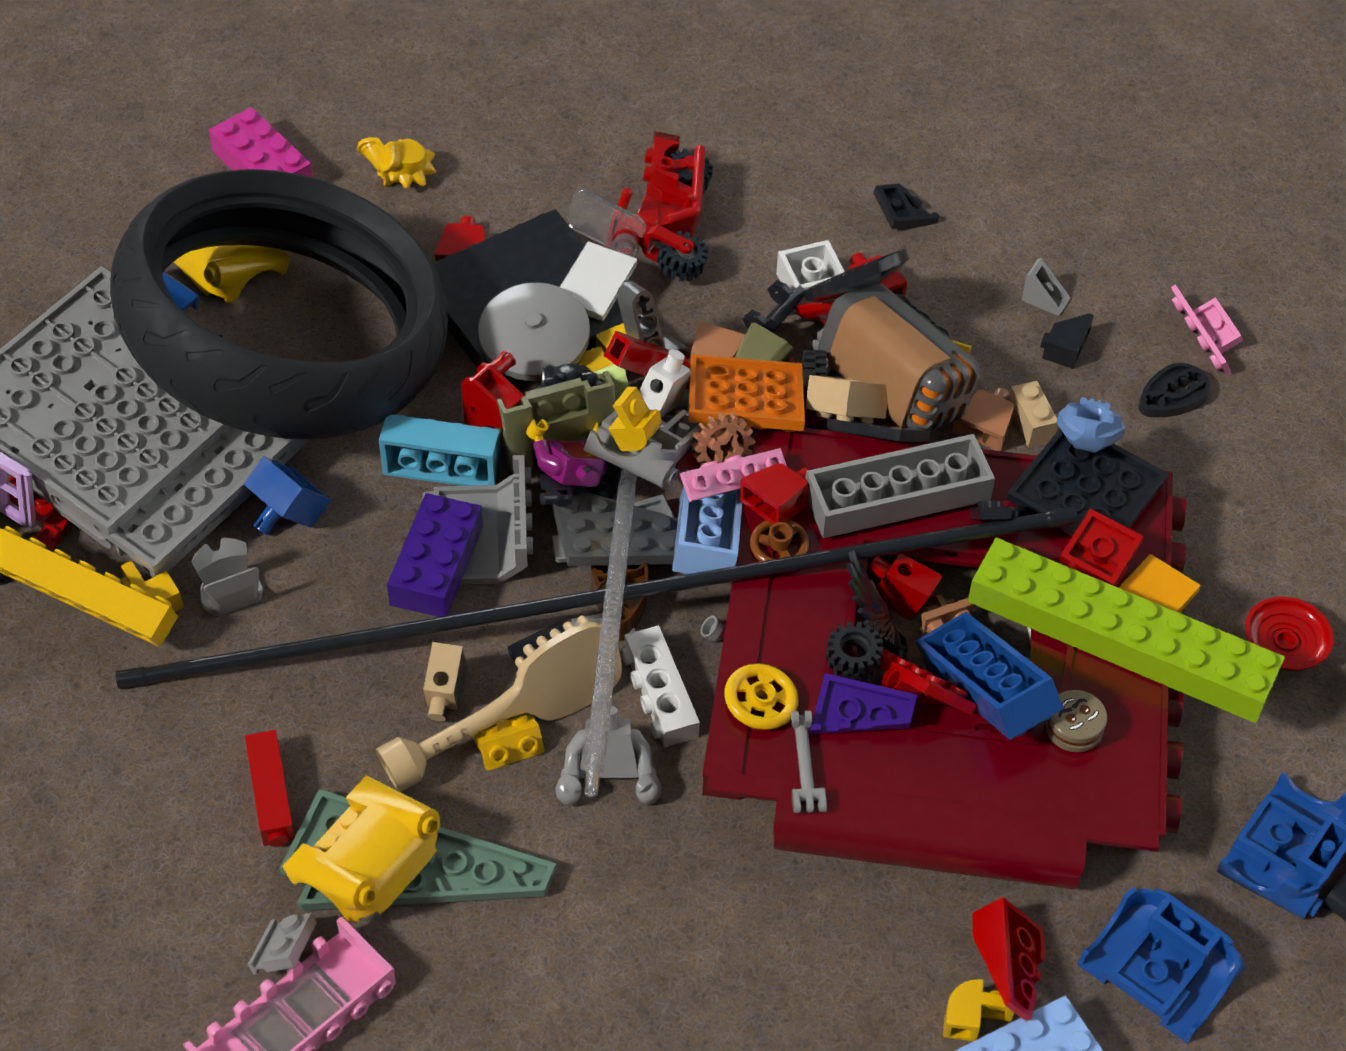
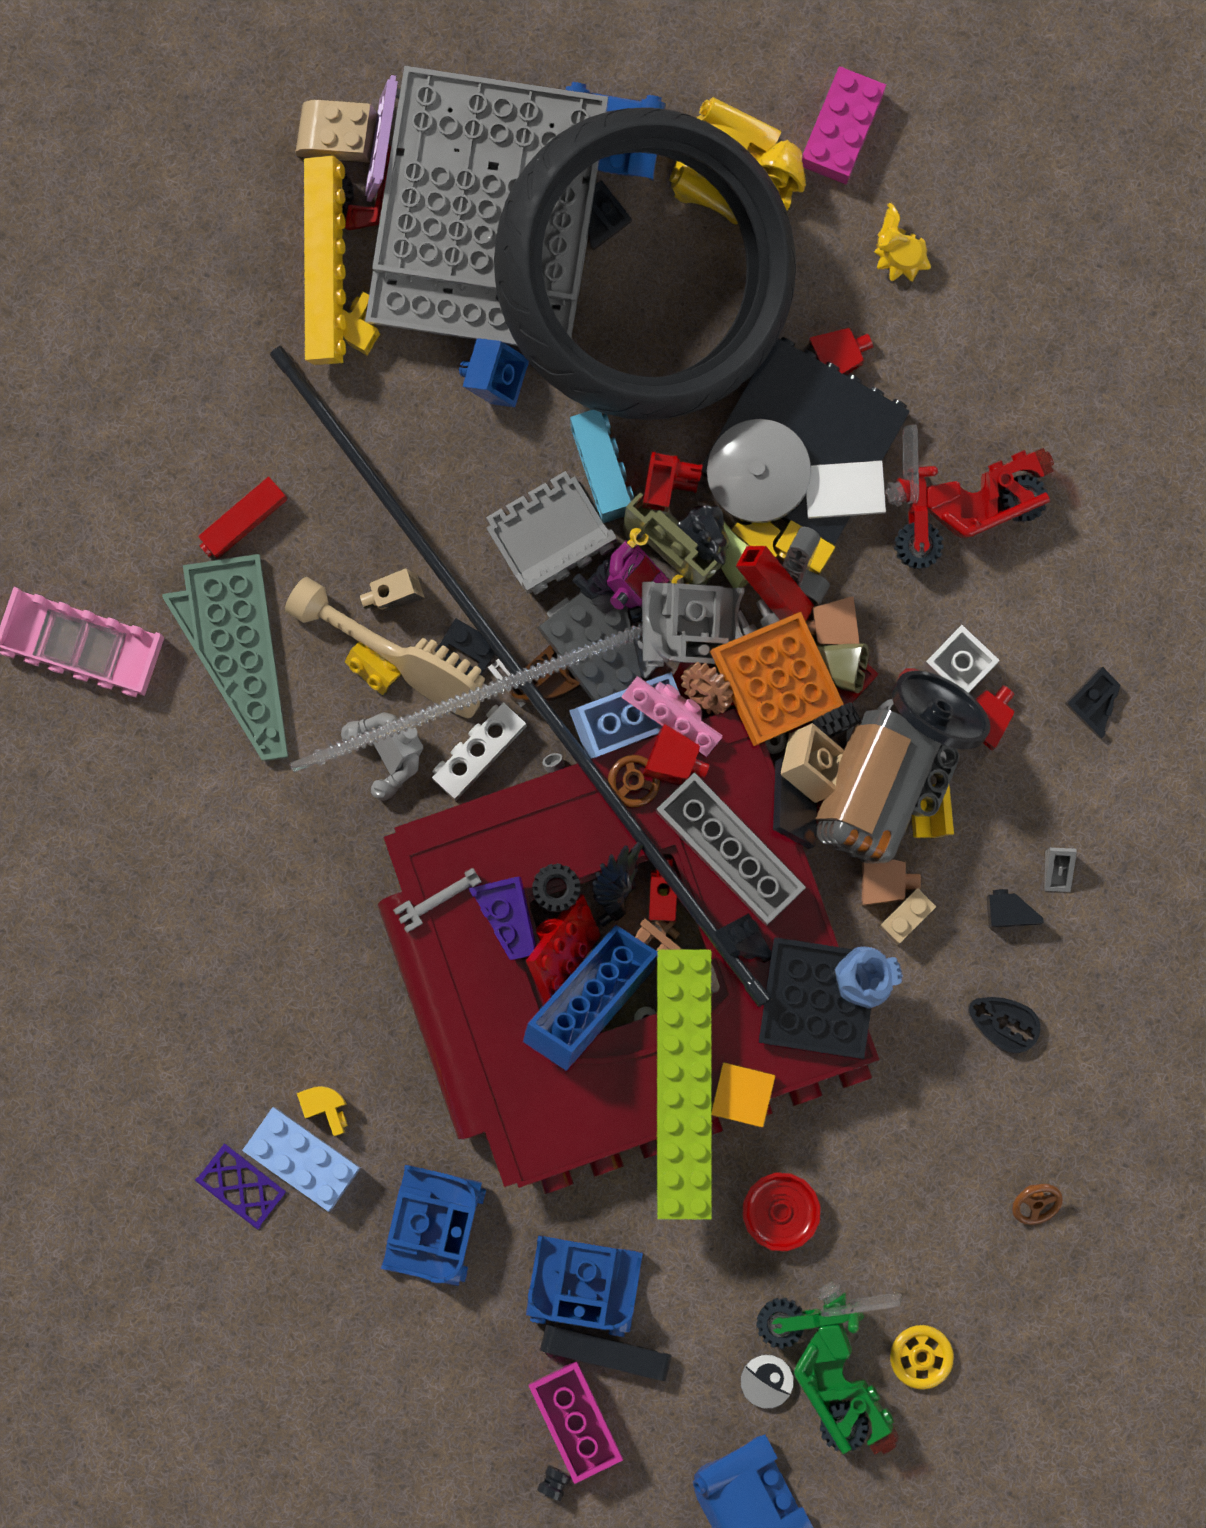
camera: 65 degrees right, 30 degrees up
(226, 578) = (399, 366): light grey piece -> none
(282, 943) = (123, 604): light grey plate -> none
(369, 850) = (218, 621): yellow piece -> none
(435, 555) = (500, 519): dark purple brick -> none
(634, 421) = (668, 614): yellow brick -> none
(666, 383) = (749, 609): white torso -> none
(766, 674) = (501, 832): yellow plate -> none
(786, 301) = (894, 655): black piece -> none
(1012, 952) = (377, 1113): red wedge -> none
(1079, 723) = (580, 1083): dark tan head -> none
(1101, 548) = (748, 1036): red plate -> none
(1213, 325) = (1094, 1026): bright pink bracket -> none

